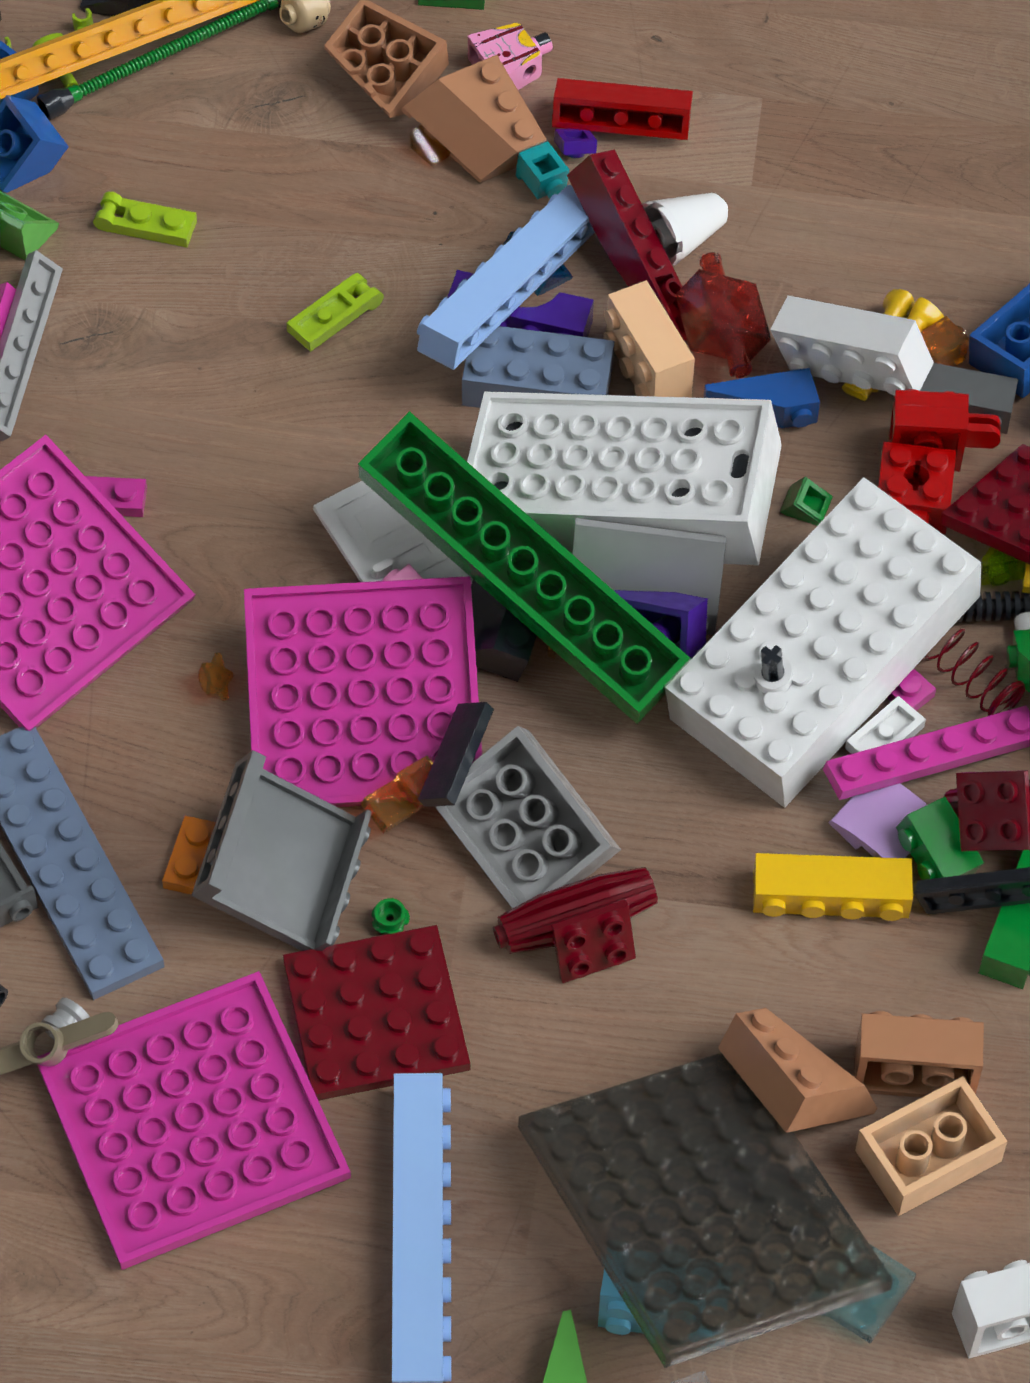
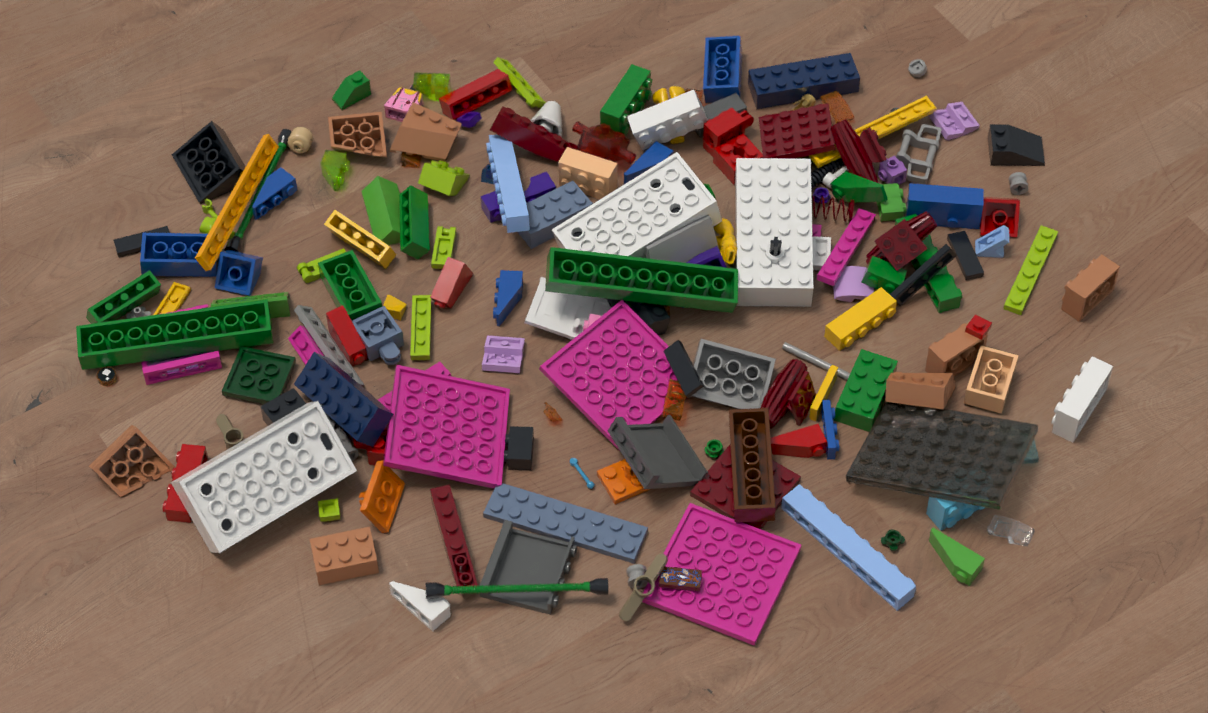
camera: 40 degrees left, 5 degrees down
(51, 344) = (346, 335): none -> red slope
(97, 377) = (380, 335): none -> sand blue brick
(113, 695) = (520, 448): none -> black brick
(115, 1076) = (680, 578): none -> tile
(132, 280) = (349, 284): none -> green brick
(169, 351) = (395, 307): none -> yellow slope
(172, 777) = (574, 462): none -> dark azure hinge
(174, 409) = (421, 327): none -> lime plate
(190, 59) = (274, 190): none -> blue slope
(224, 214) = (360, 239): none -> yellow brick
(247, 536) = (503, 354): none -> lavender slope
(280, 372) = (451, 283): none -> slope
(307, 83) = (333, 168): none -> clear neon green slope
(313, 203) = (383, 209): none -> bright green slope
(326, 243) = (414, 222): none -> green brick
(340, 450) = (509, 294): none -> blue slope
(394, 984) = (751, 465): none -> reddish brown brick
(442, 205) = (443, 178): none -> lime slope
(502, 1268) = (893, 535): none -> dark green plate
(526, 1011) = (800, 443): none -> red slope
(545, 176) = (469, 138): teal brick -> none
(574, 51) = (432, 84): none -> clear neon green slope
(591, 1024) = (829, 429): none -> blue plate
(645, 959) = (823, 392): none -> yellow tile
(692, 1009) = (865, 390): none -> green brick
(696, 903) = (813, 359): none -> light grey bar
(709, 135) = (523, 87): none -> lime plate
(719, 611) = (727, 240): none -> yellow piece
(832, 269) = (627, 99): none -> green brick
(975, 1042) = (978, 327): none -> red plate
(992, 635) = (819, 192): none -> dark purple plate

